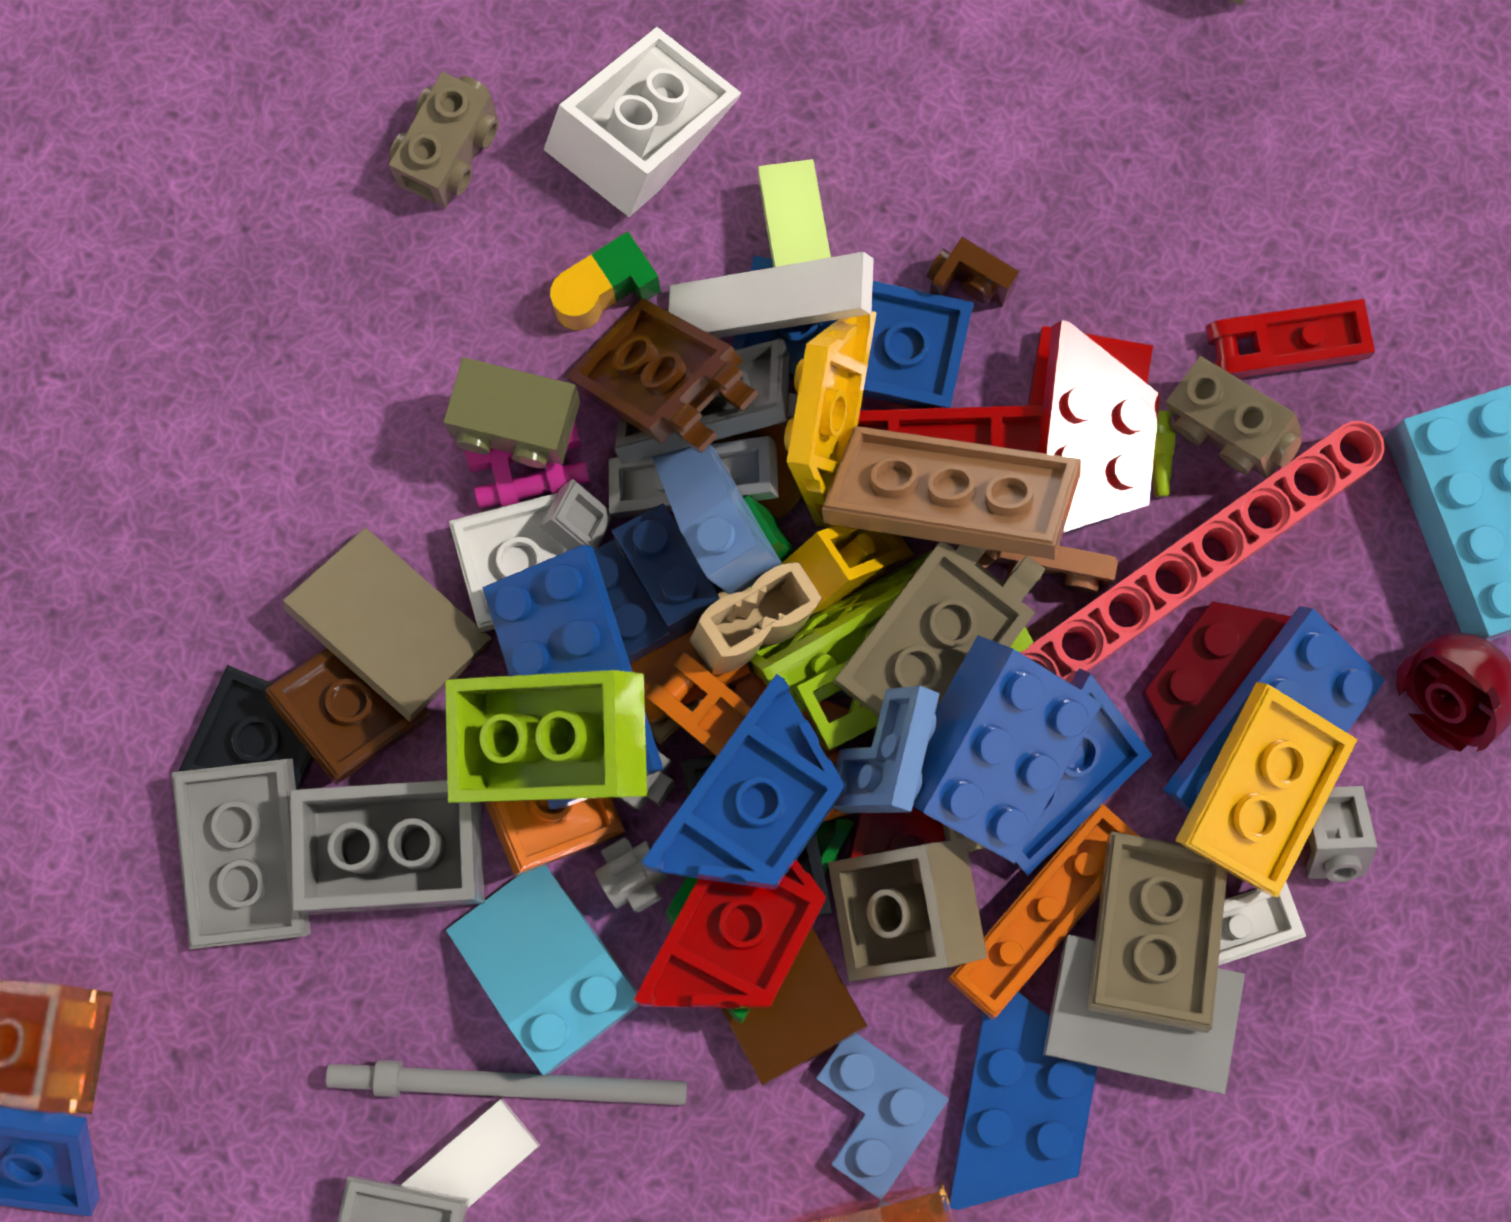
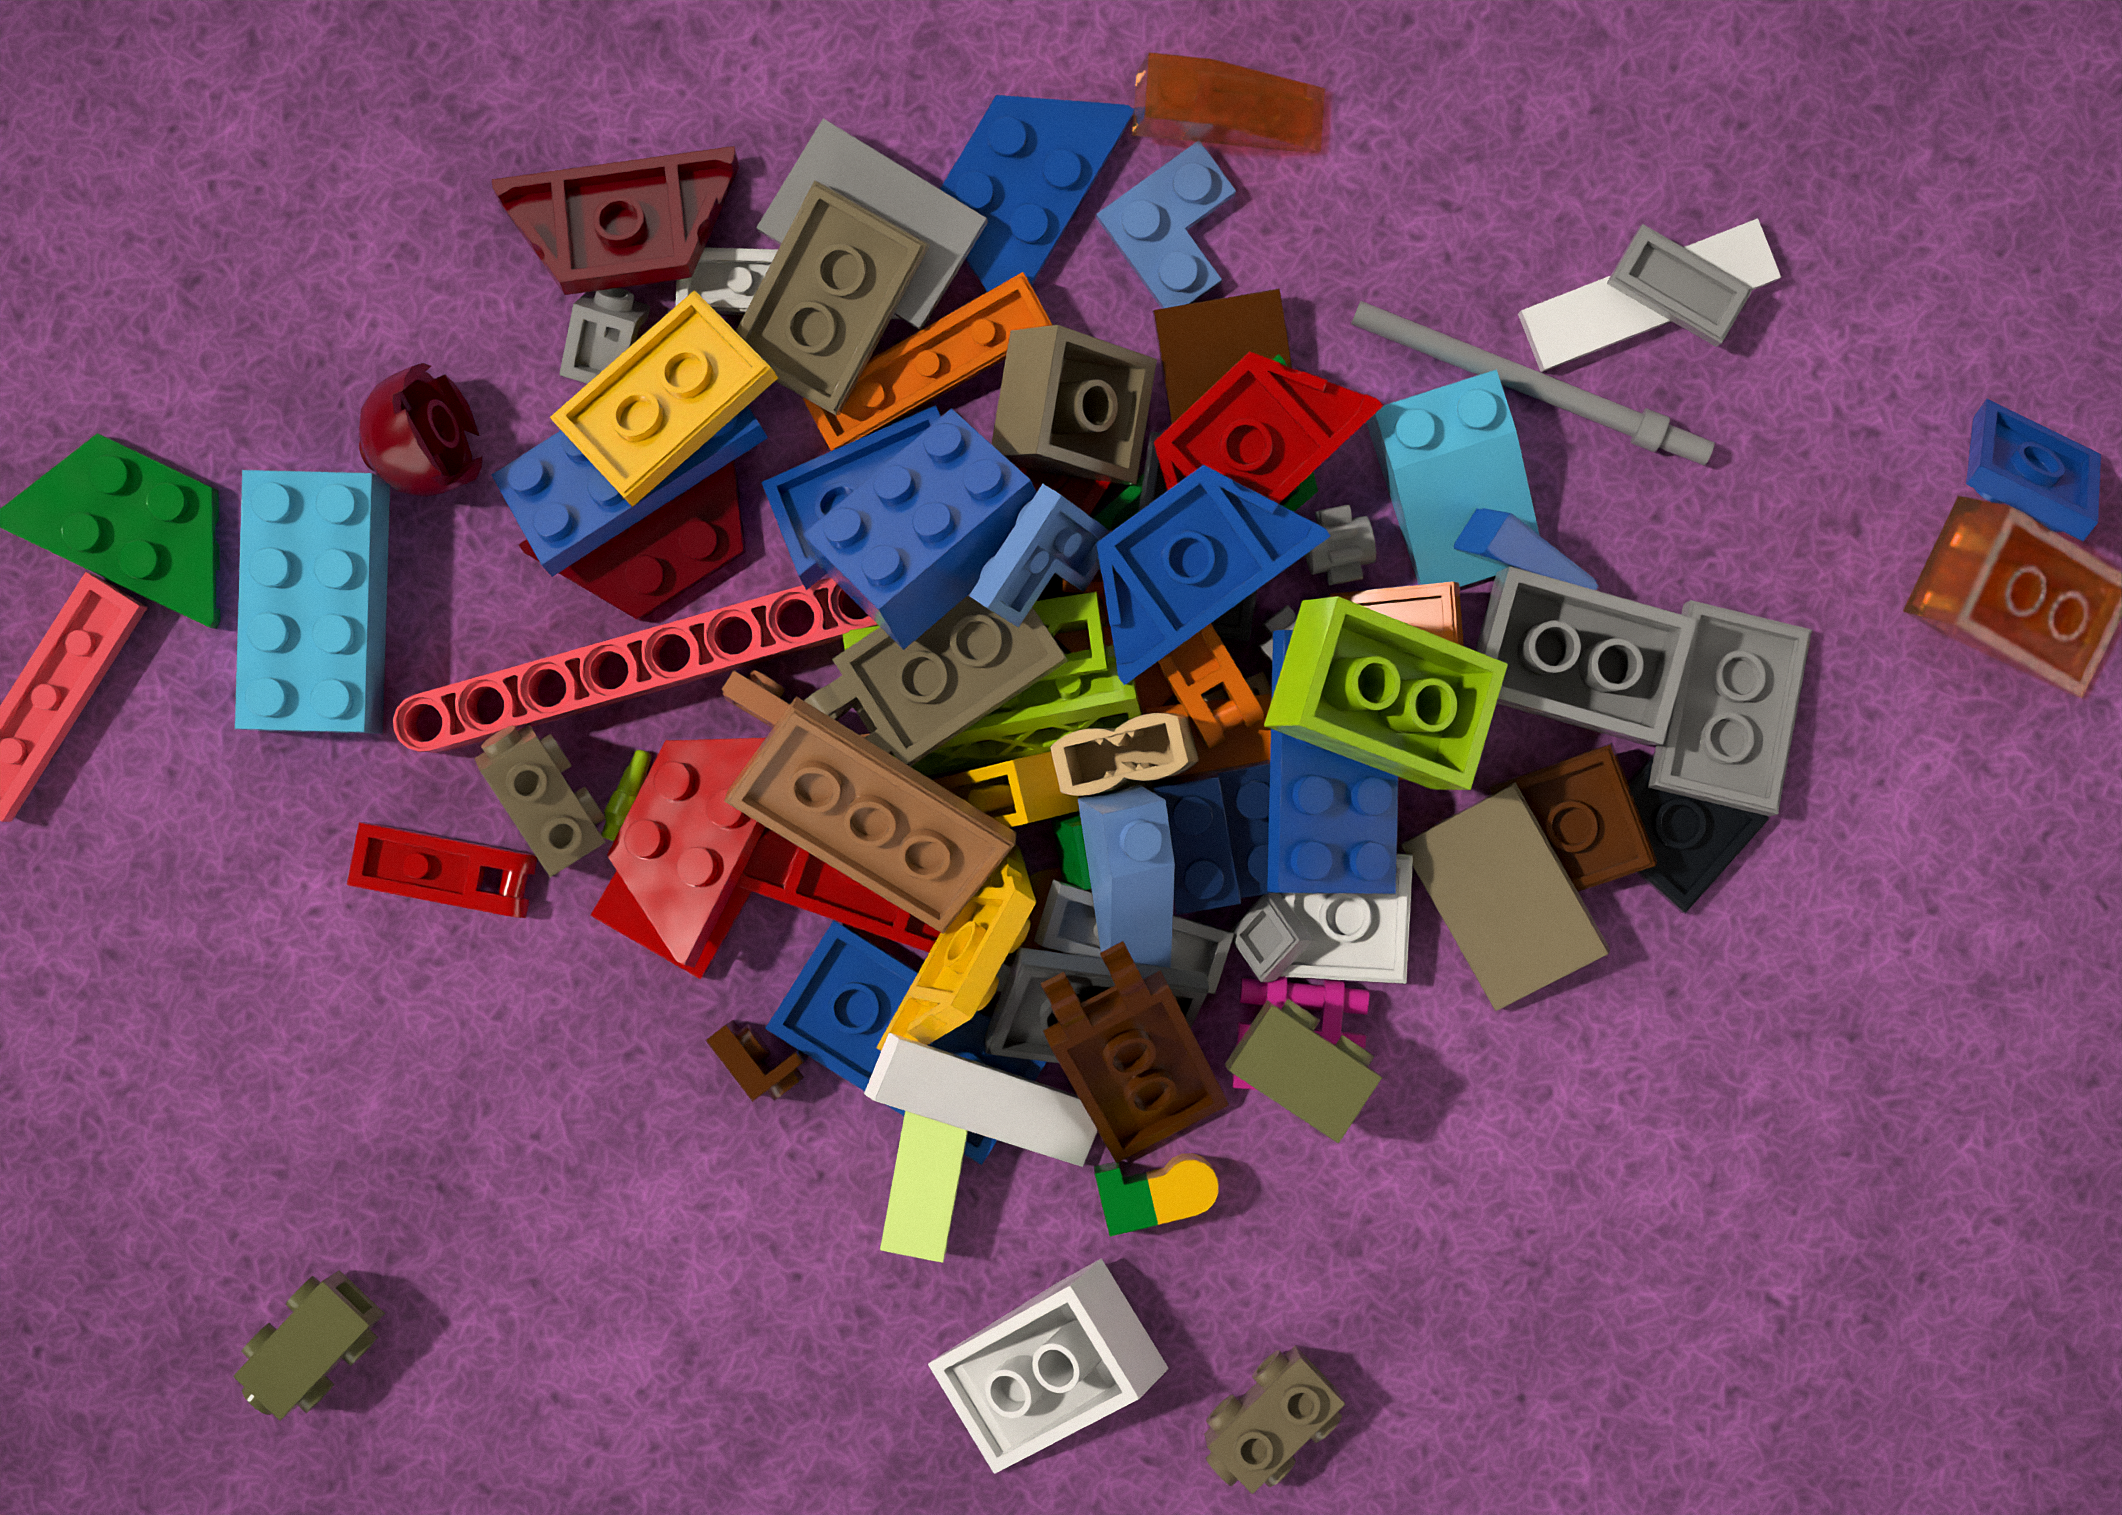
camera: 160 degrees left, 10 degrees up
(486, 920) = (1510, 542): none -> blue slope
(1365, 942) = (621, 218): none -> dark red wing

